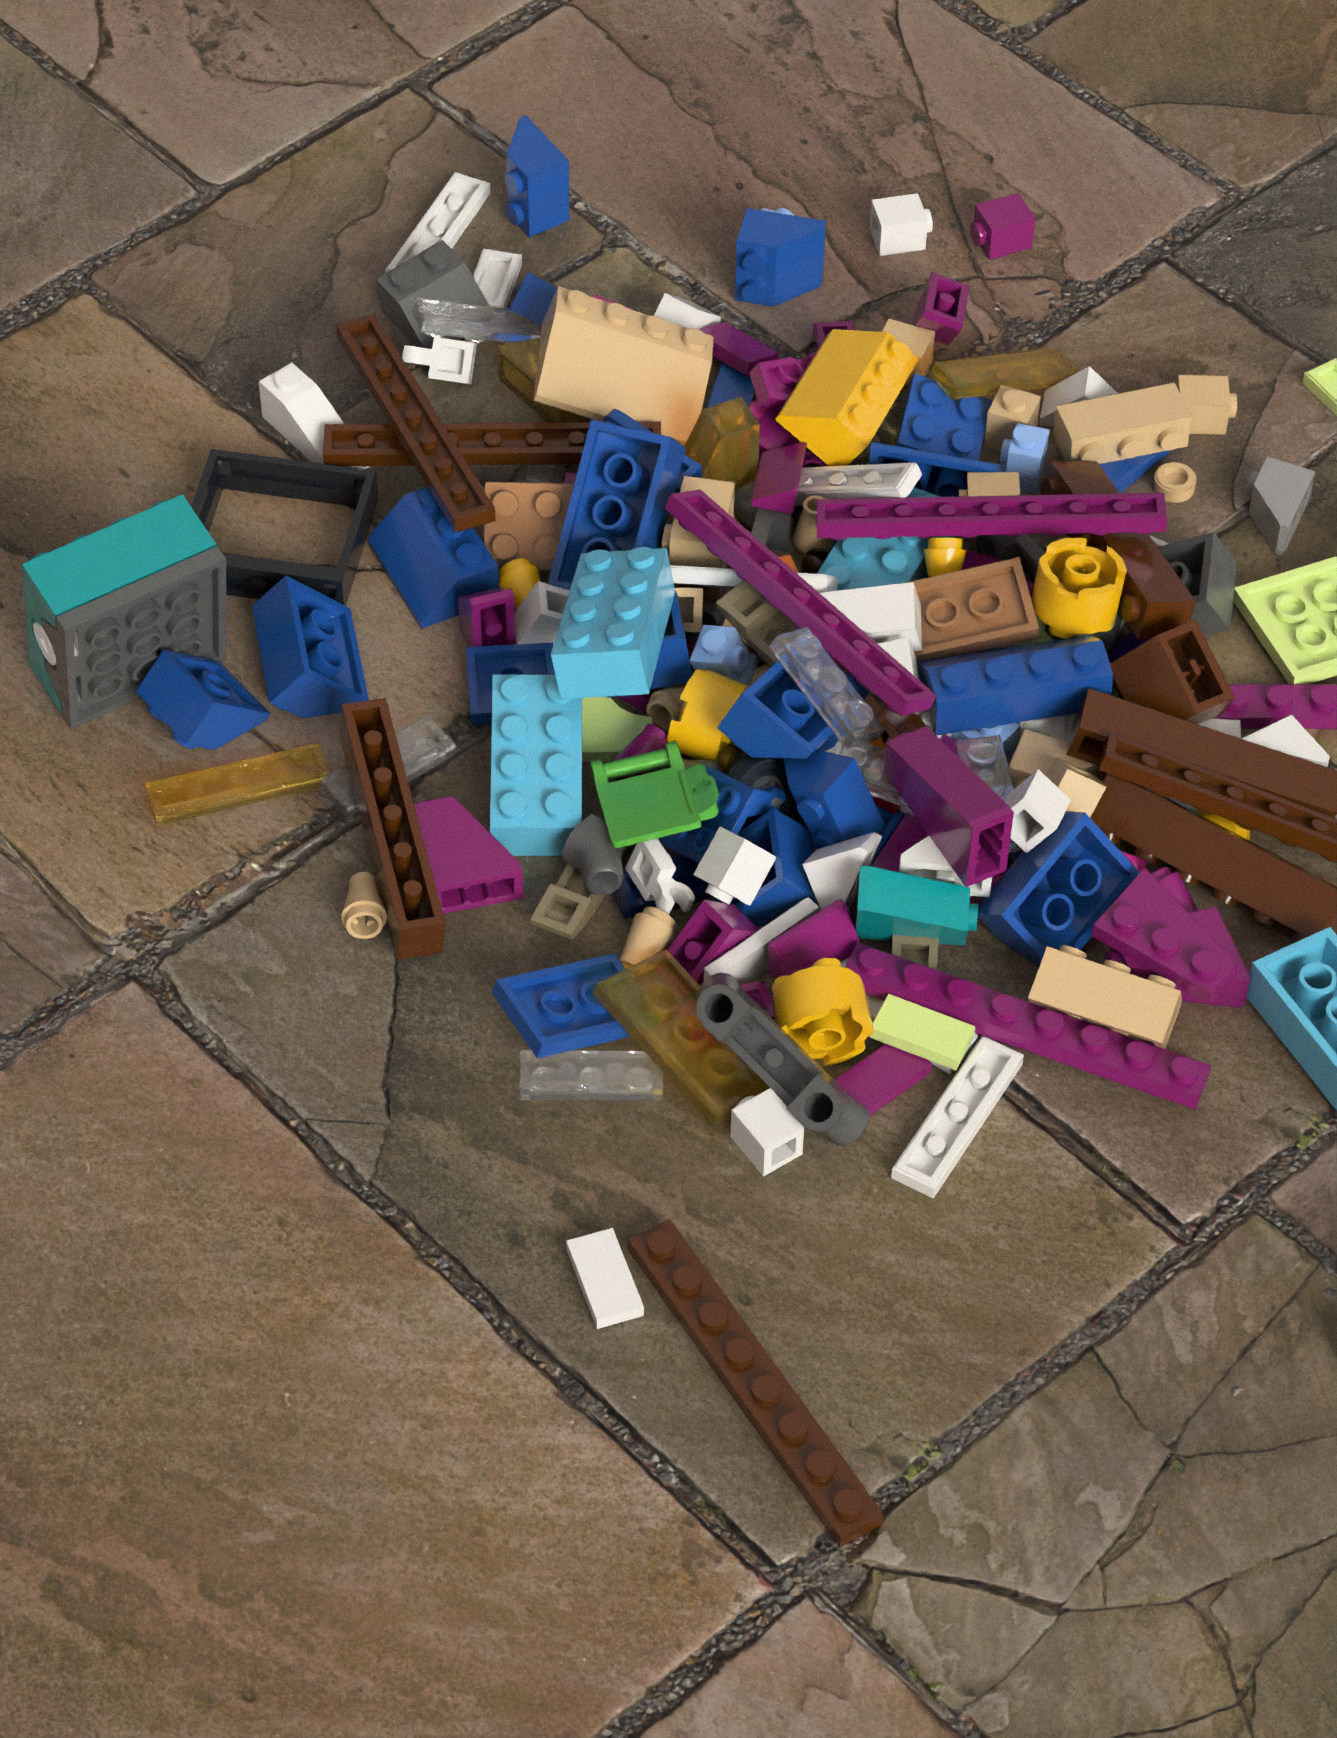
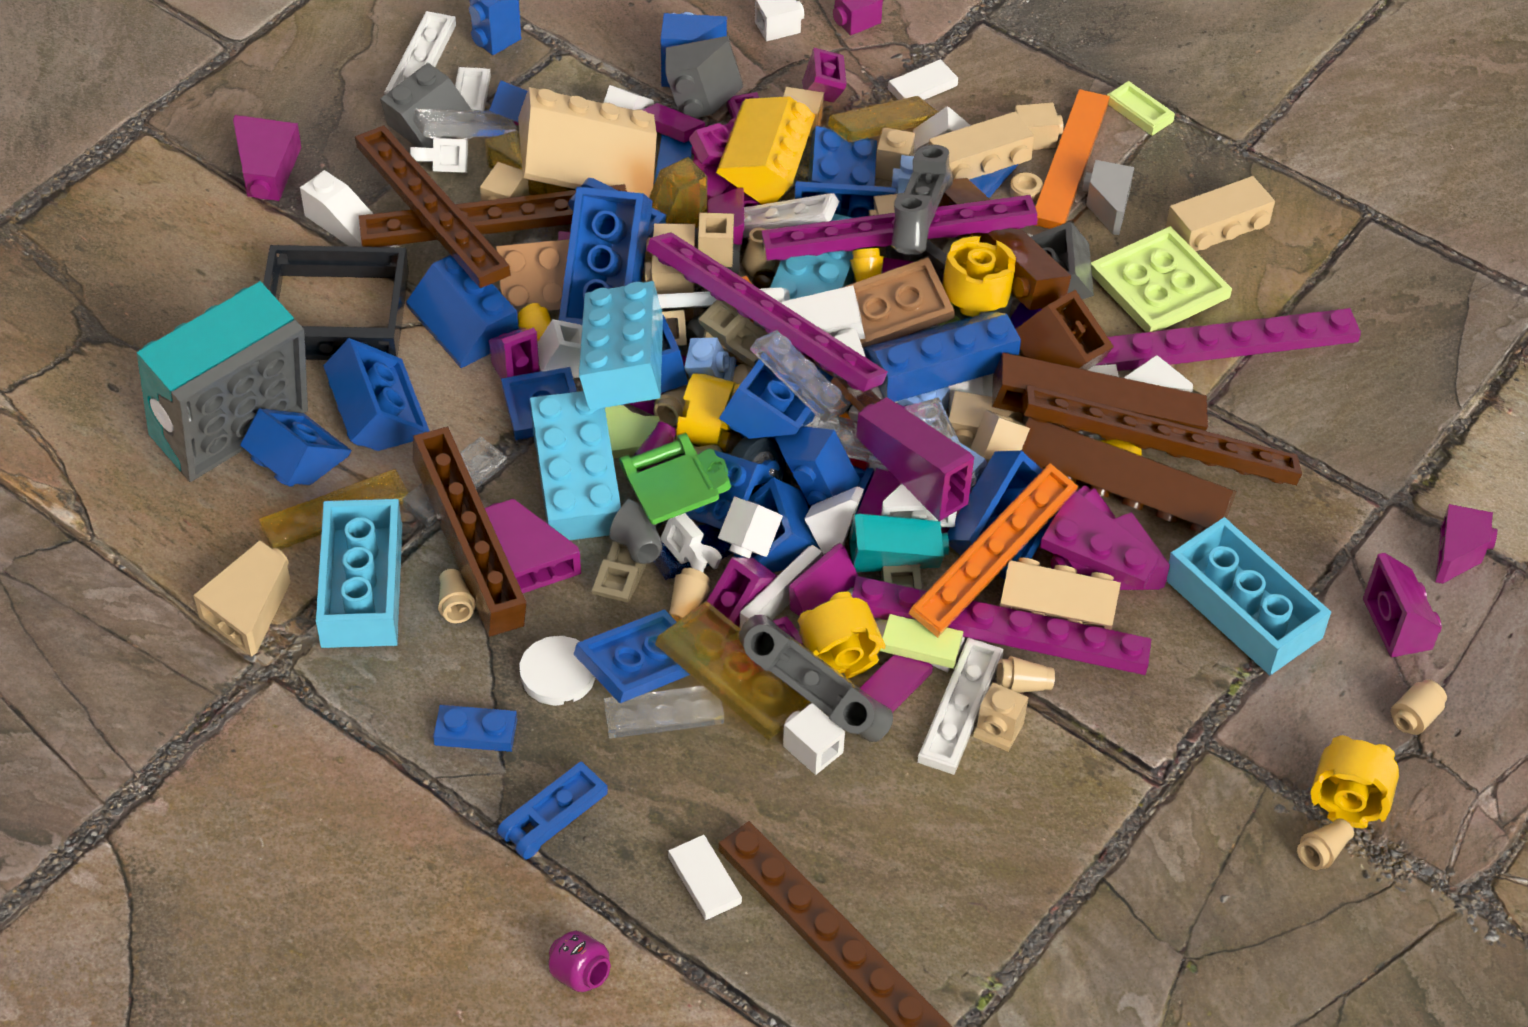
camera: 10 degrees left, 0 degrees up
(114, 874) = (246, 596): none -> tan slope
(226, 334) = (266, 154): none -> magenta slope
(253, 863) = (359, 573): none -> medium azure brick
(362, 1066) = (475, 728): none -> blue plate
(435, 1354) = (579, 961): none -> magenta head
(436, 1174) = (552, 809): none -> blue plate
(466, 1013) = (553, 673): none -> white tile
(511, 403) = (504, 182): none -> tan brick
(759, 503) = (717, 236): none -> tan brick
(784, 293) = (702, 75): none -> dark grey slope
(1002, 1135) = (1001, 716): none -> tan brick
(1015, 492) = (921, 199): none -> dark grey plate
(1030, 931) = (993, 550): none -> orange tile
(1037, 810) = (987, 452): white brick -> none
(1041, 1091) = (1024, 675): none -> tan cone
(1070, 330) = (924, 81): none -> white tile
(1239, 451) = (1071, 159): none -> orange tile

